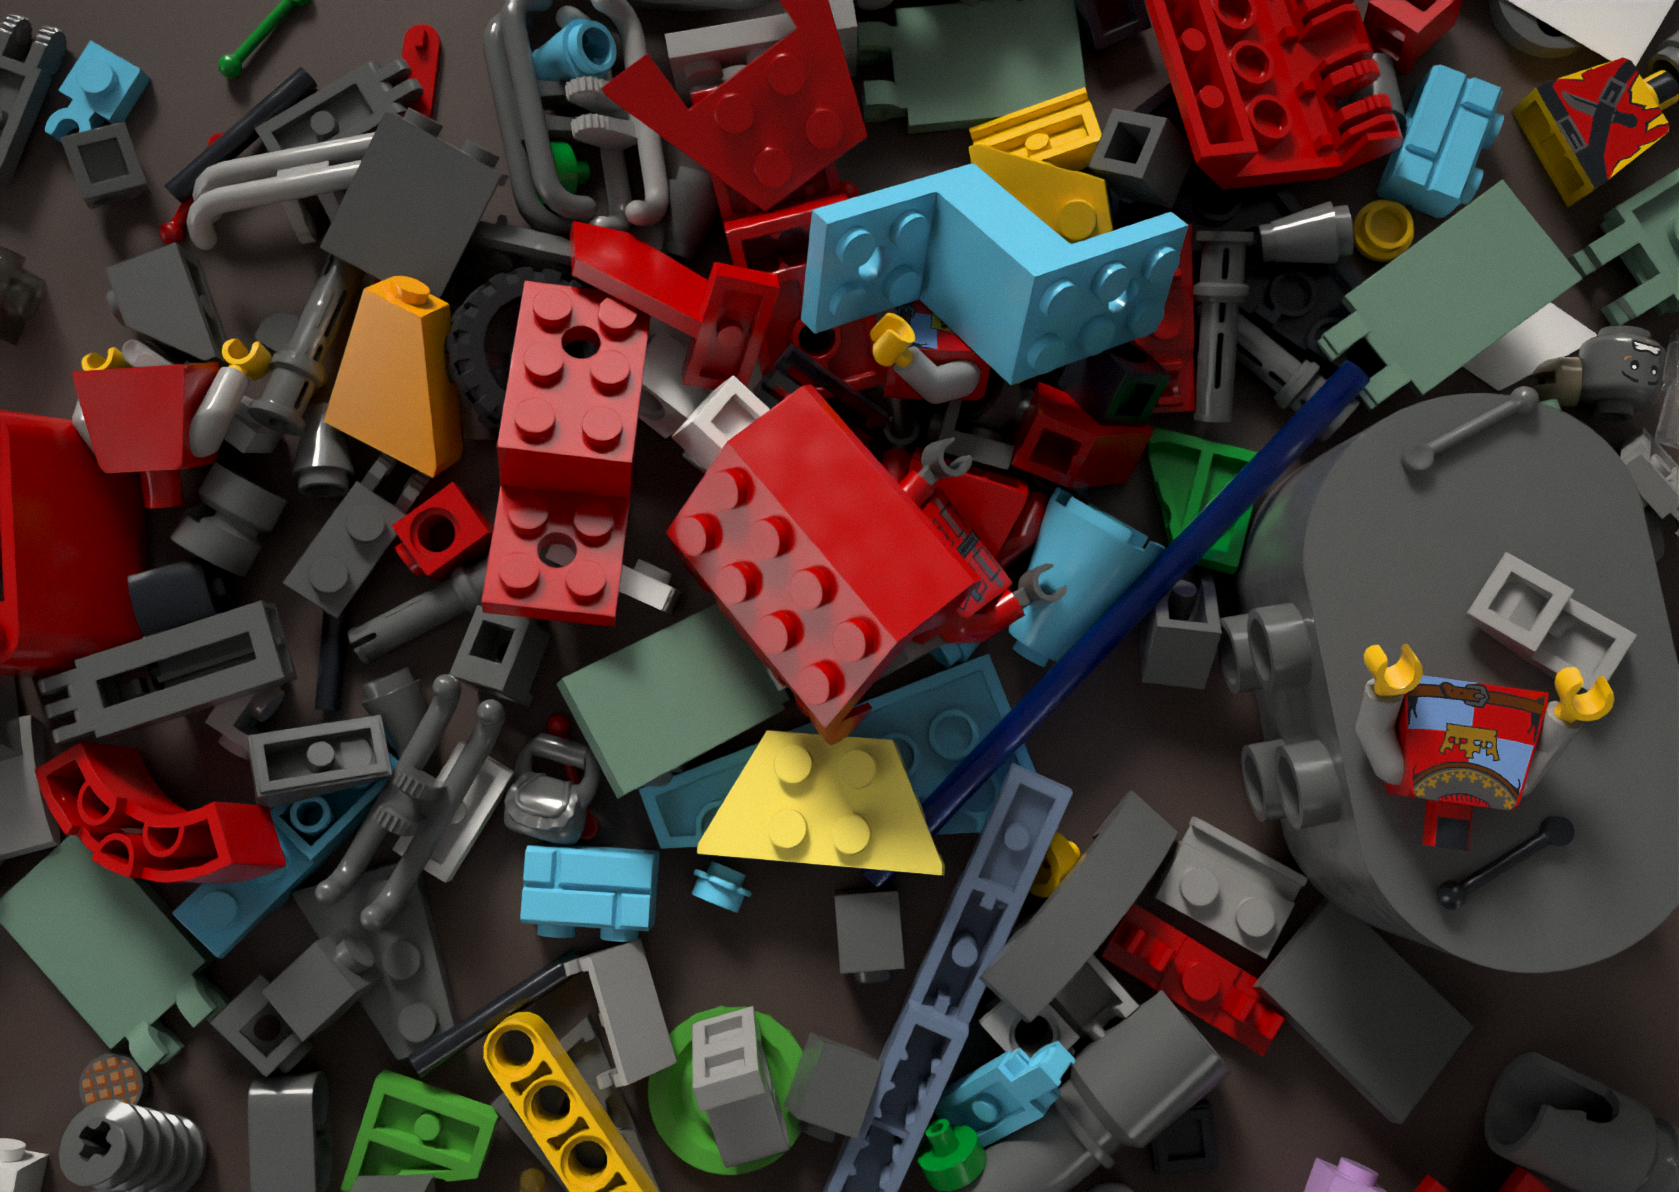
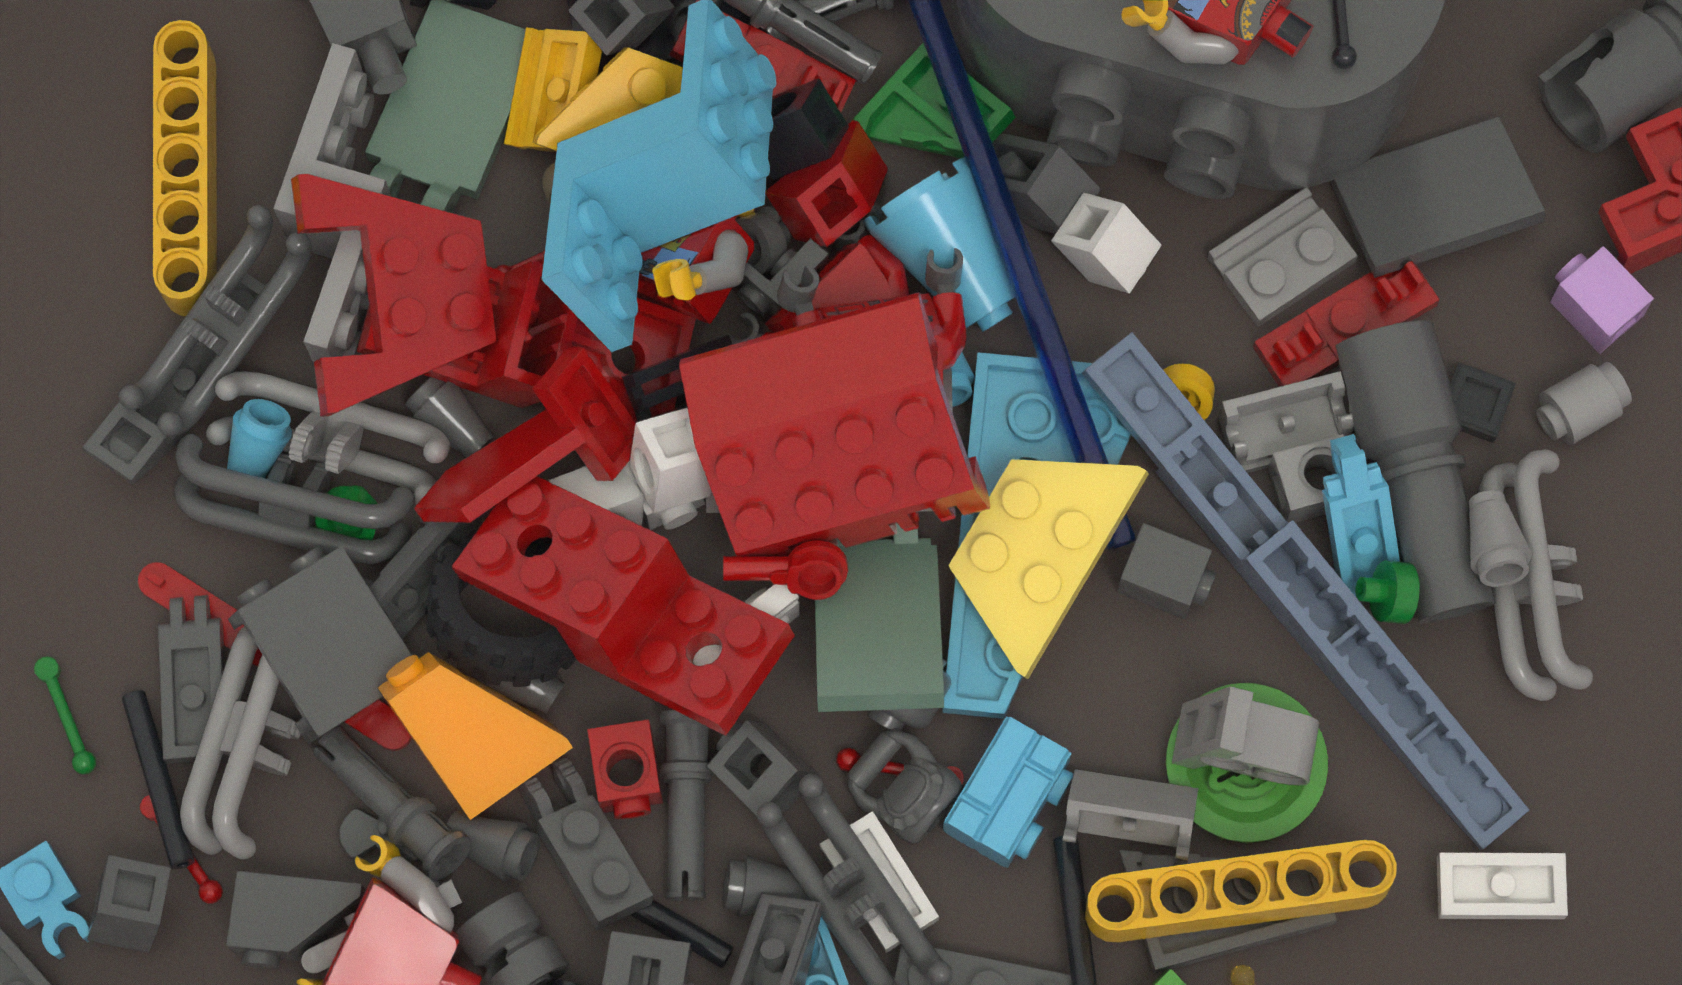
camera: 60 degrees left, 10 degrees down
(685, 606) = (811, 569): none -> red plate
(721, 886) = (1064, 682): medium azure plate -> none
(832, 1088) = (1284, 663): dark grey brick -> none
(1081, 909) = (1236, 380): dark grey slope -> none
(1154, 720) = (1106, 242): none -> white brick

